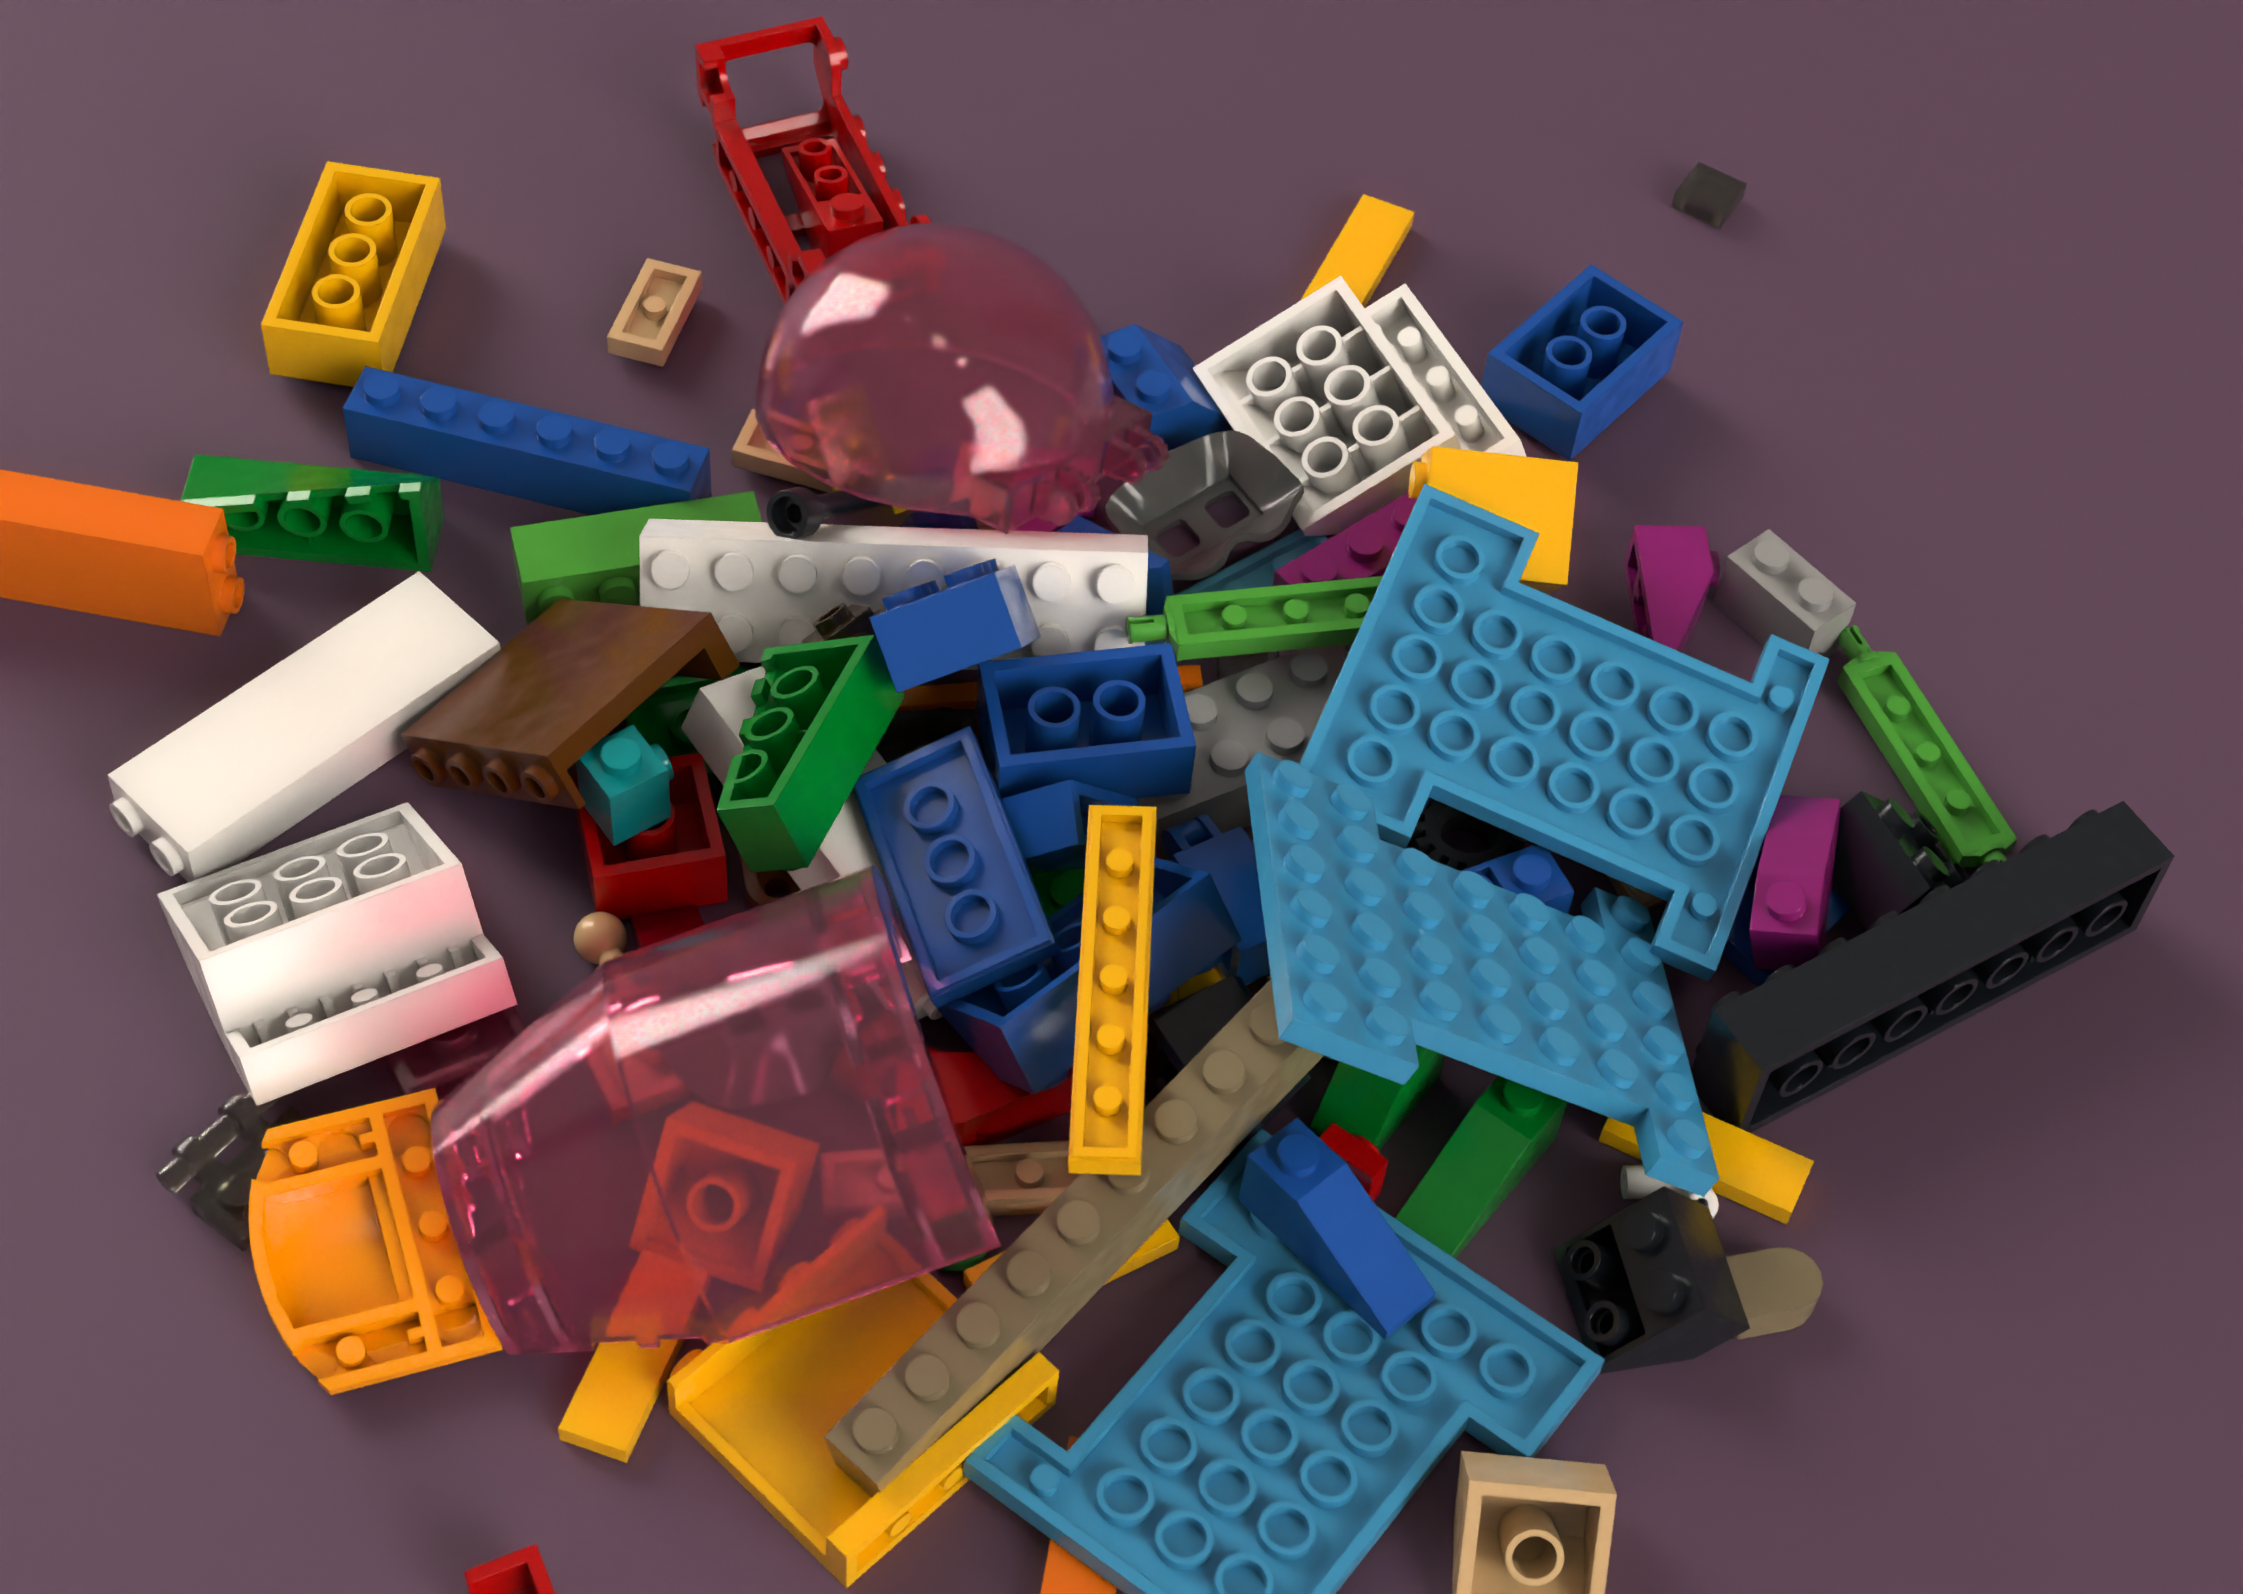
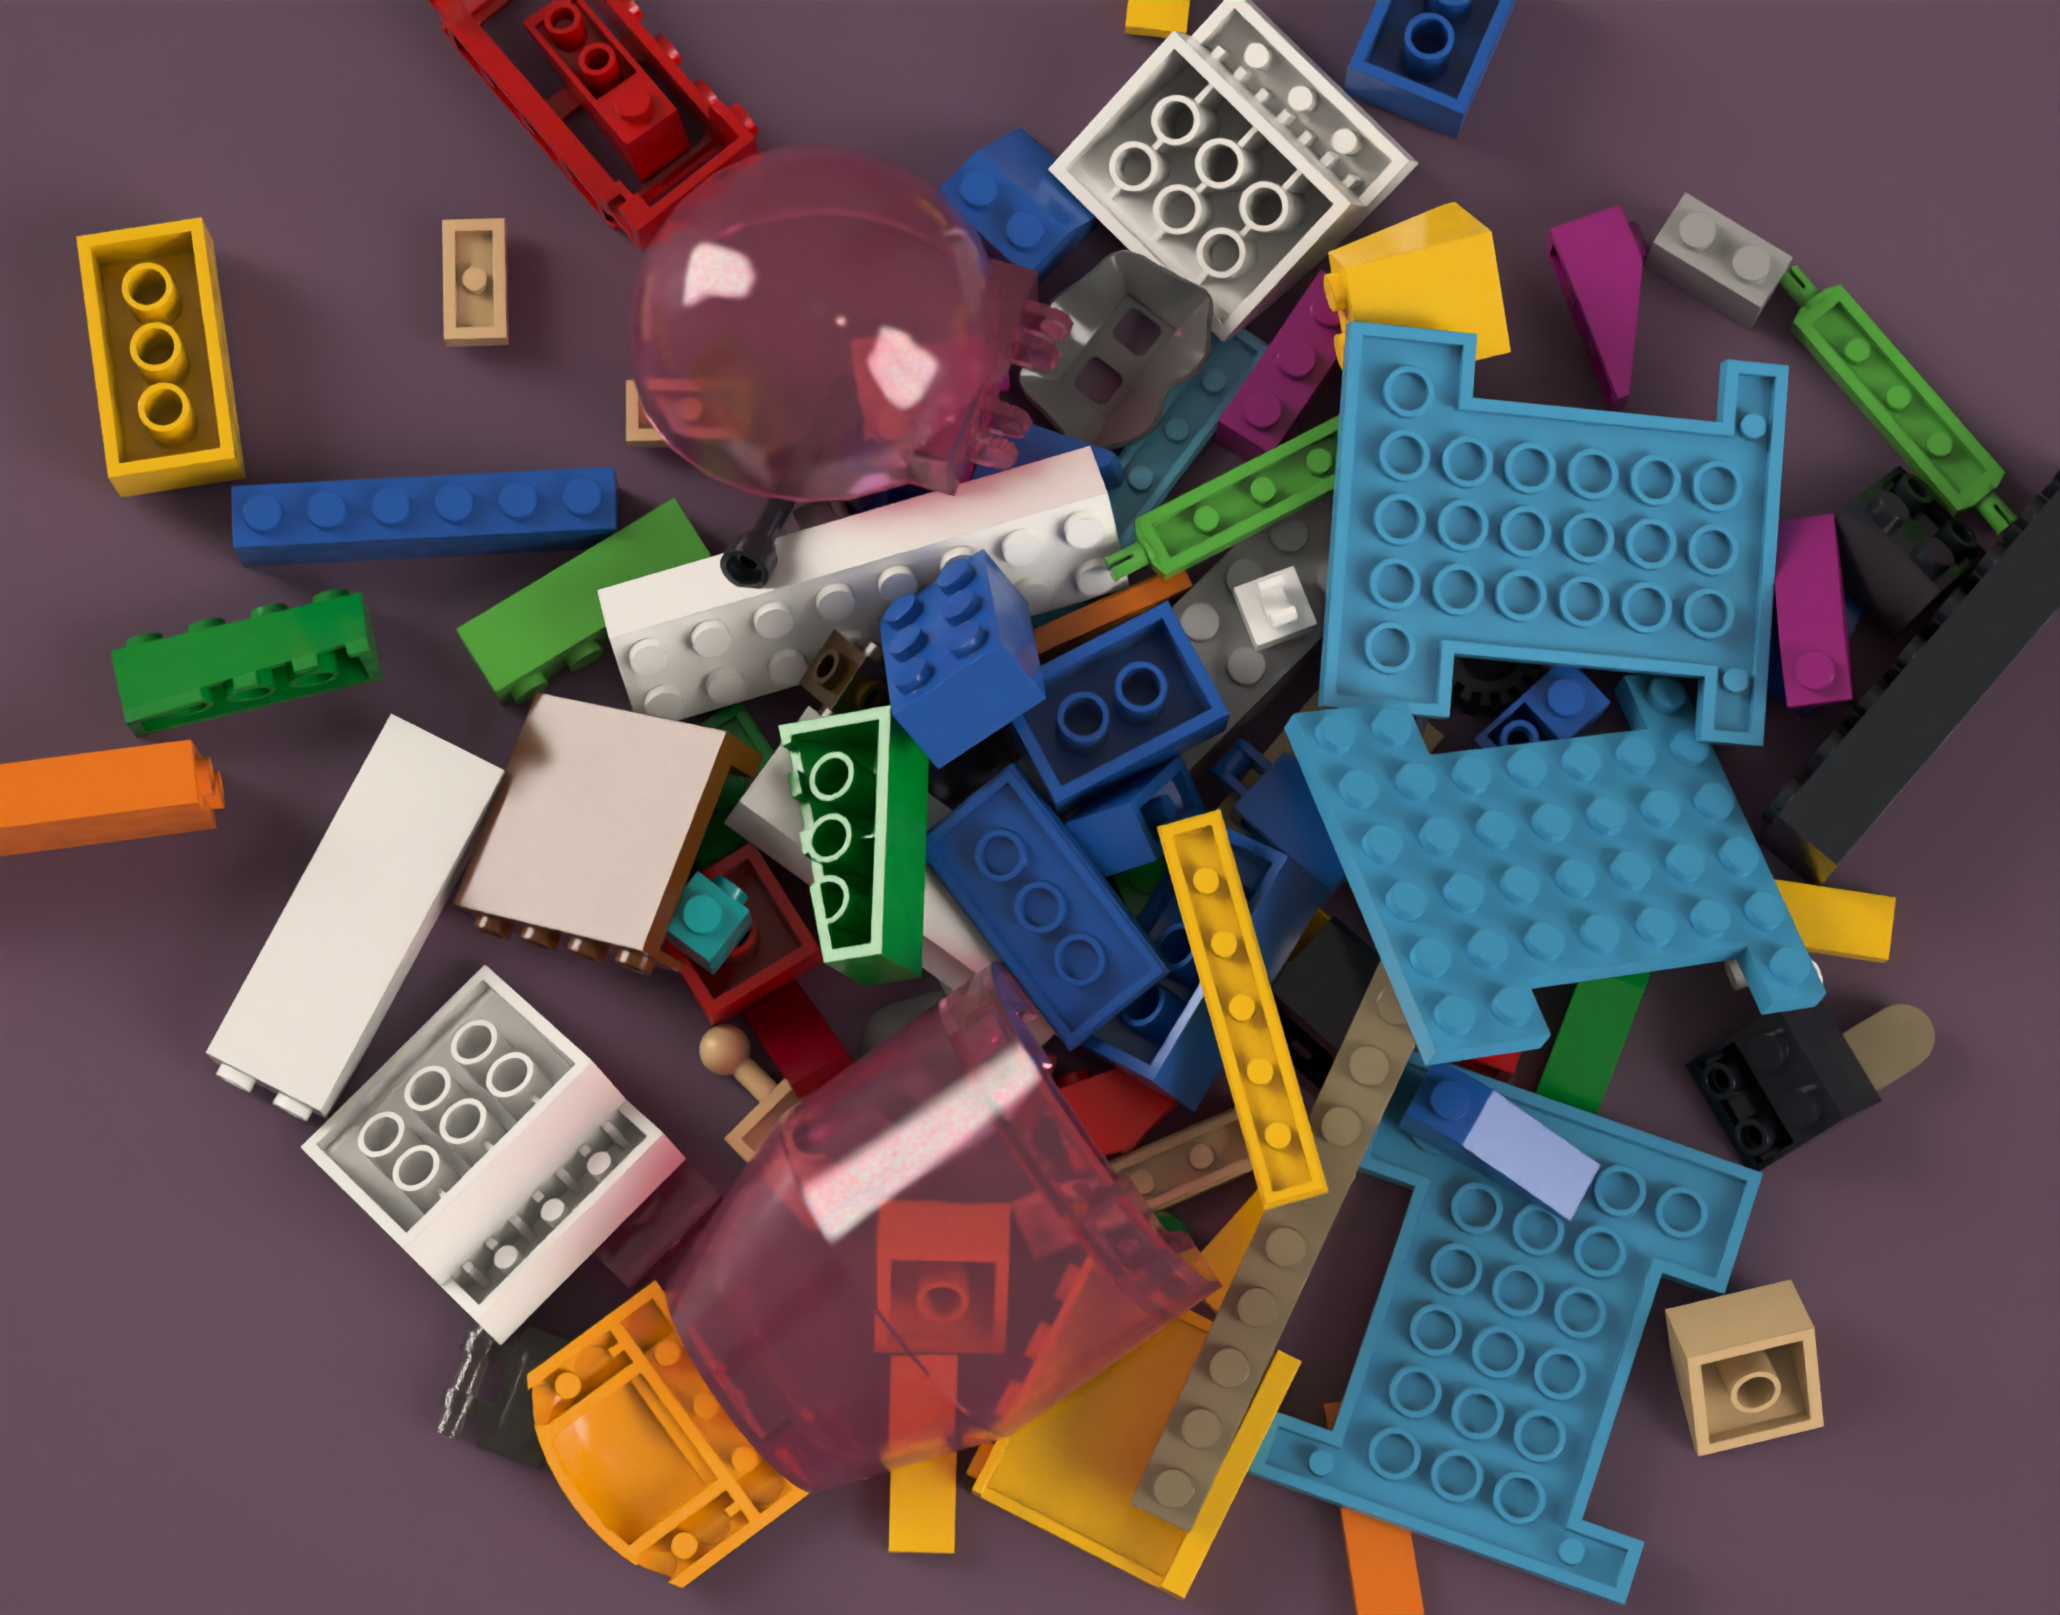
camera: 15 degrees left, 25 degrees up
(1273, 710) = (1274, 608): none -> white tile

